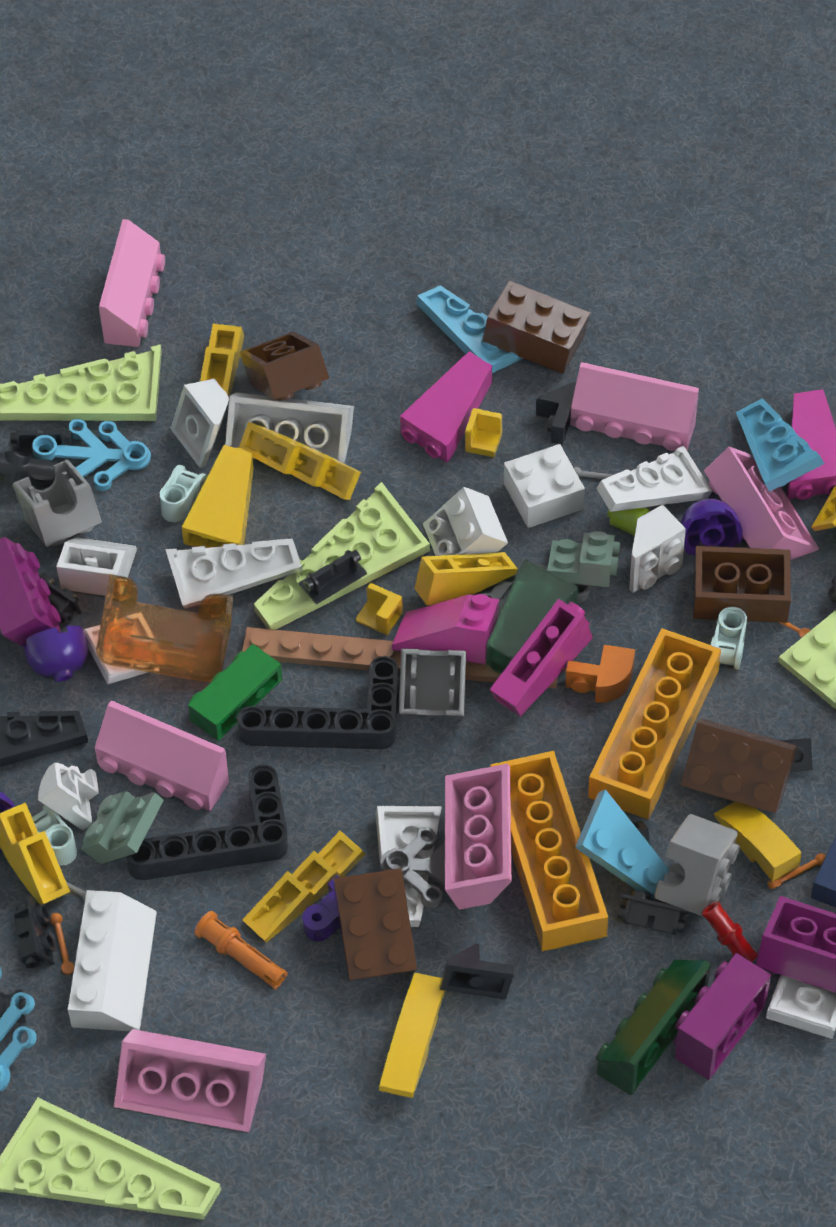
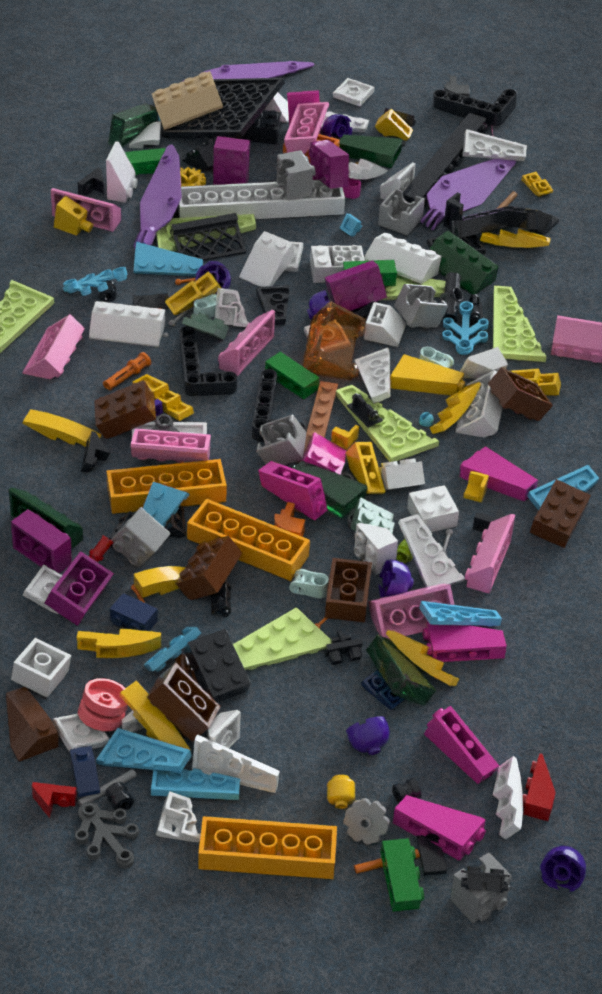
camera: 90 degrees right, 10 degrees down
(317, 509) = (428, 421): none -> medium azure hinge

